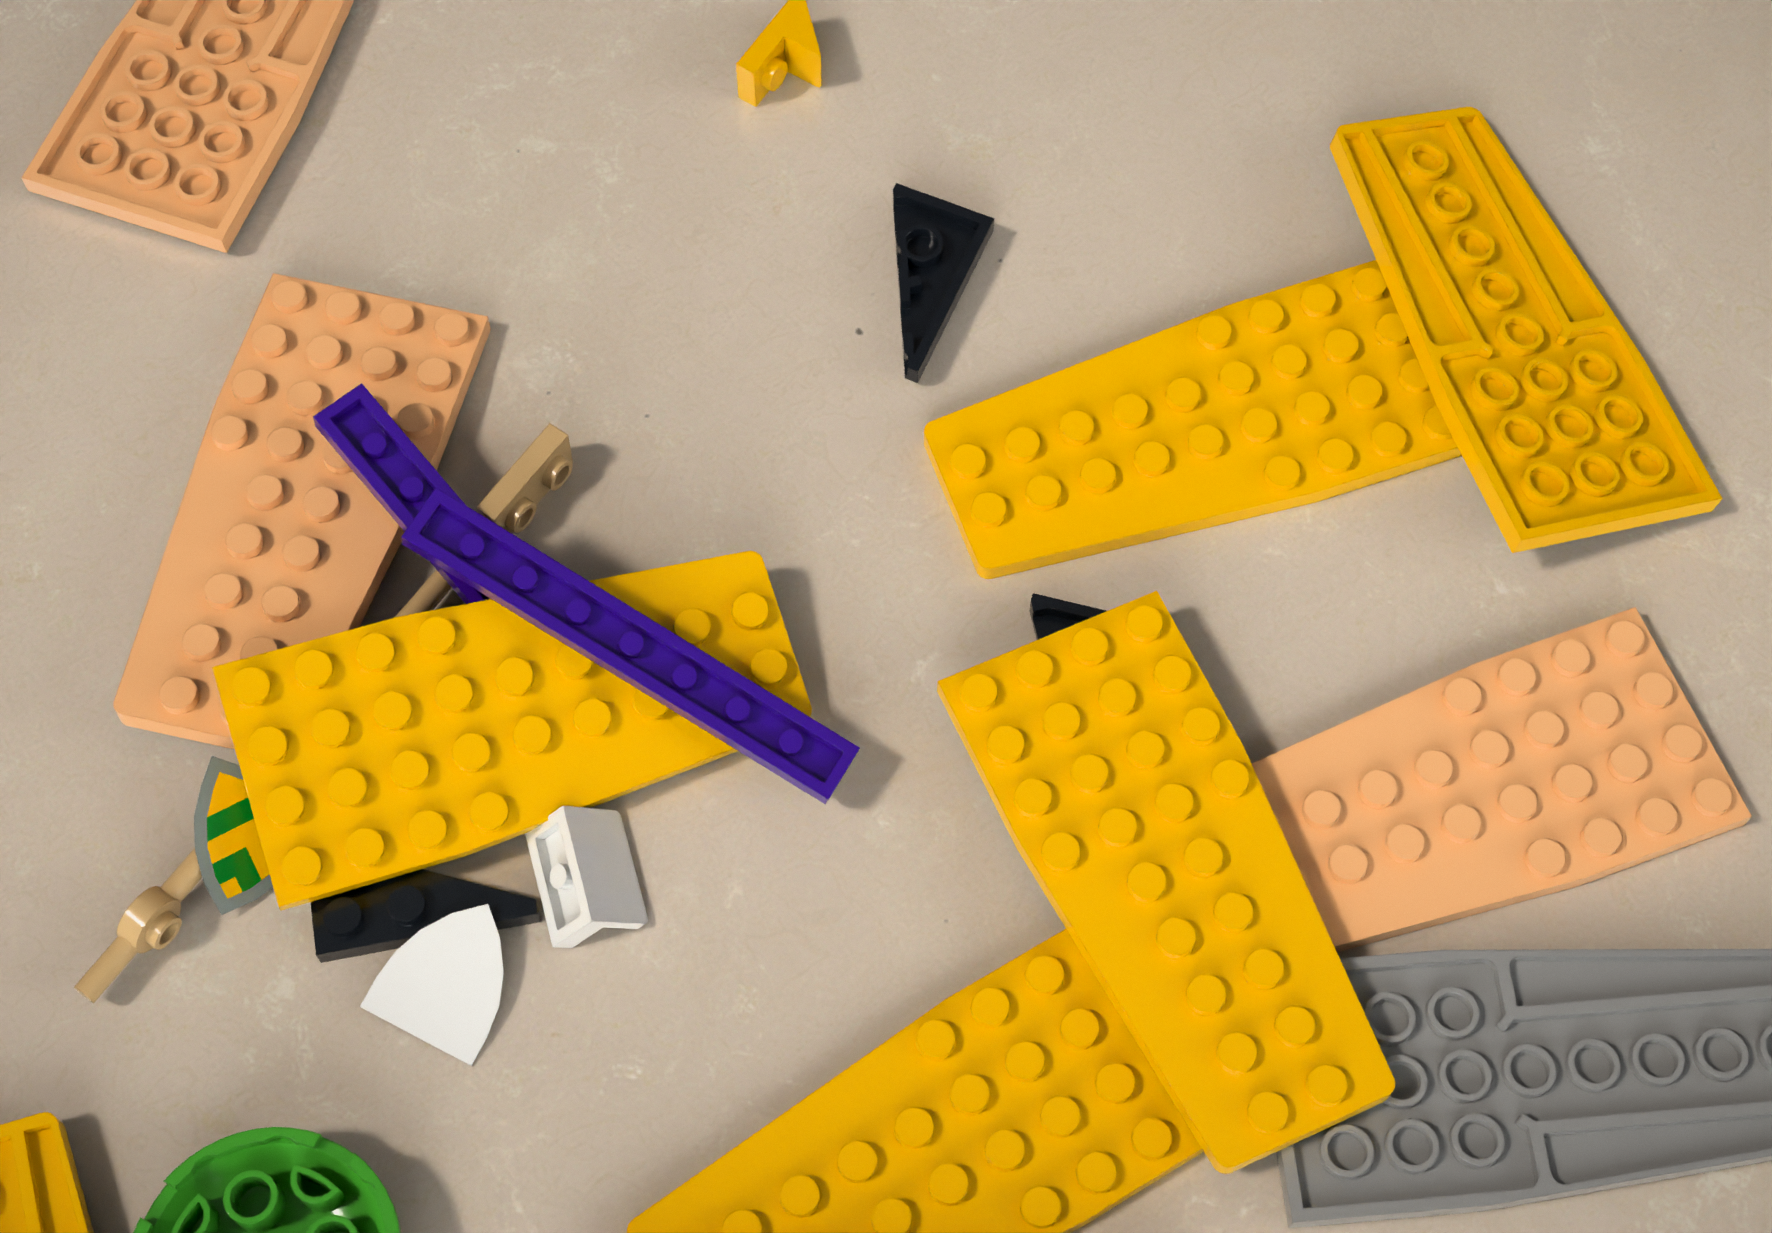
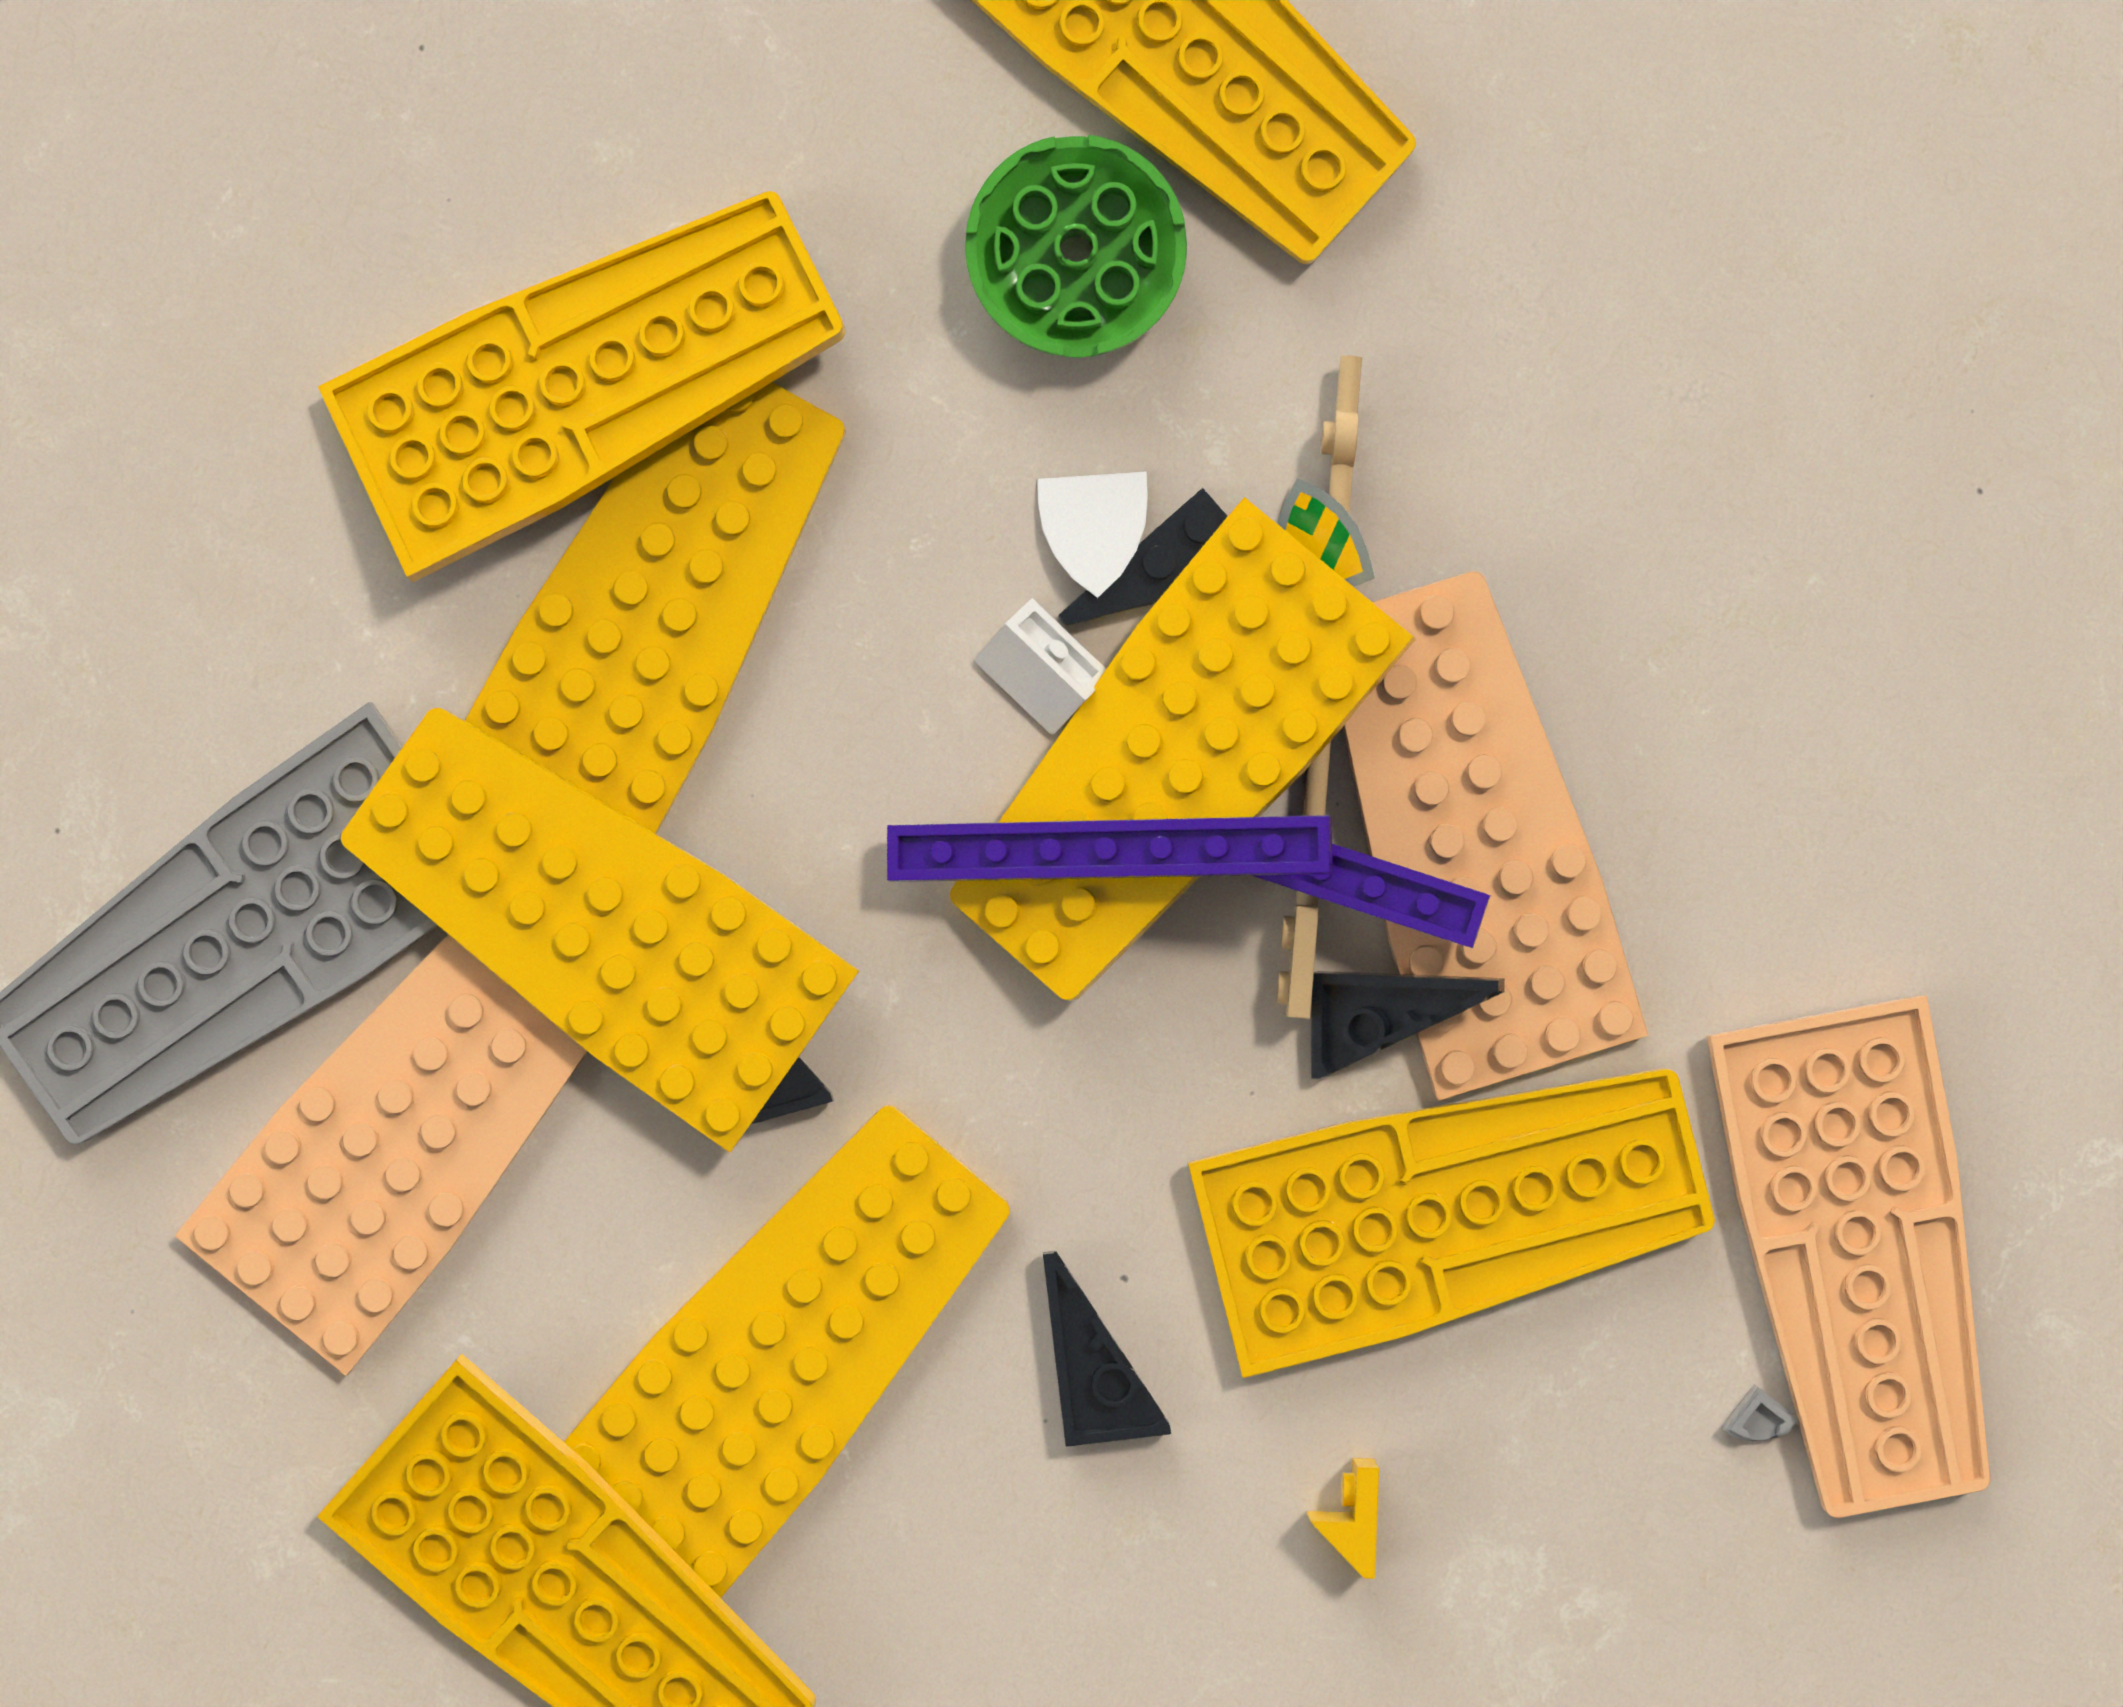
camera: 150 degrees right, 25 degrees up
(485, 405) = (1371, 1011): none -> black wing
(549, 234) = (1443, 1211): none -> yellow wing

